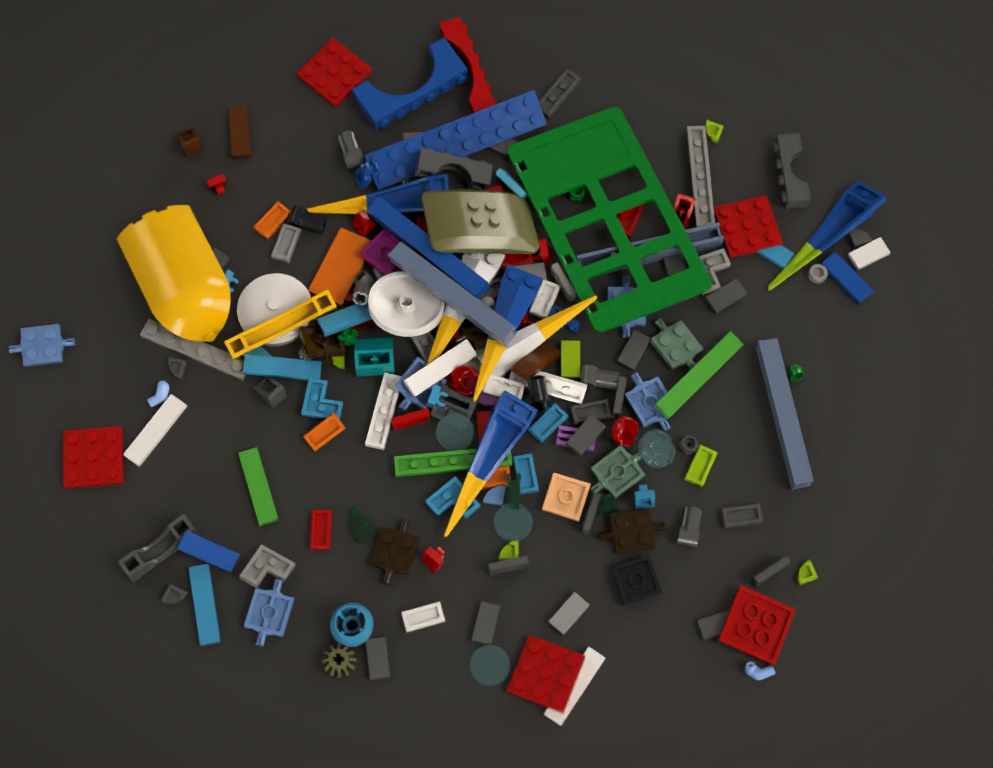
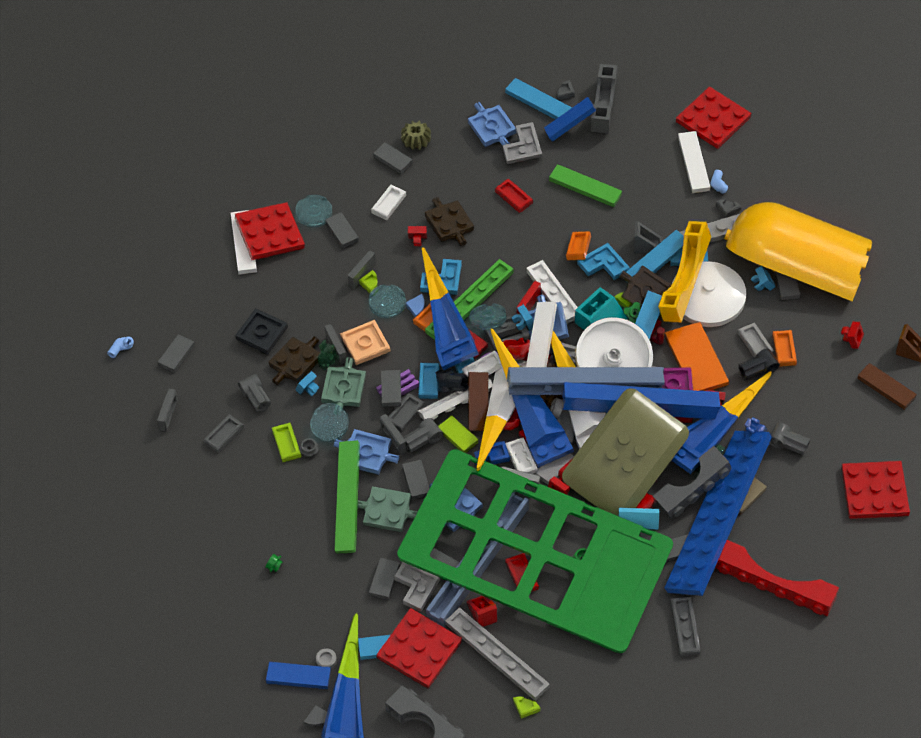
camera: 140 degrees right, 15 degrees down
(41, 345) = (832, 147): medium blue plate -> none
(357, 636) = (428, 152): dark azure wheel -> none
(361, 527) = (488, 217): clear green plate -> none
(362, 289) = (662, 351): dark grey piece -> none
(385, 108) = (805, 489): blue arch -> none
(514, 494) = (402, 309): clear green plate -> none
(525, 466) = (410, 336): dark azure tile -> none
(568, 613) = (290, 278): light grey tile -> none
(624, 431) = (365, 413): red hair -> none
(756, 625) = (147, 369): red plate -> none
(784, 414) = (256, 525): sand blue tile -> none
(806, 573) = (139, 434): lime tile -> none
(869, 253) = (297, 711): white tile -> none

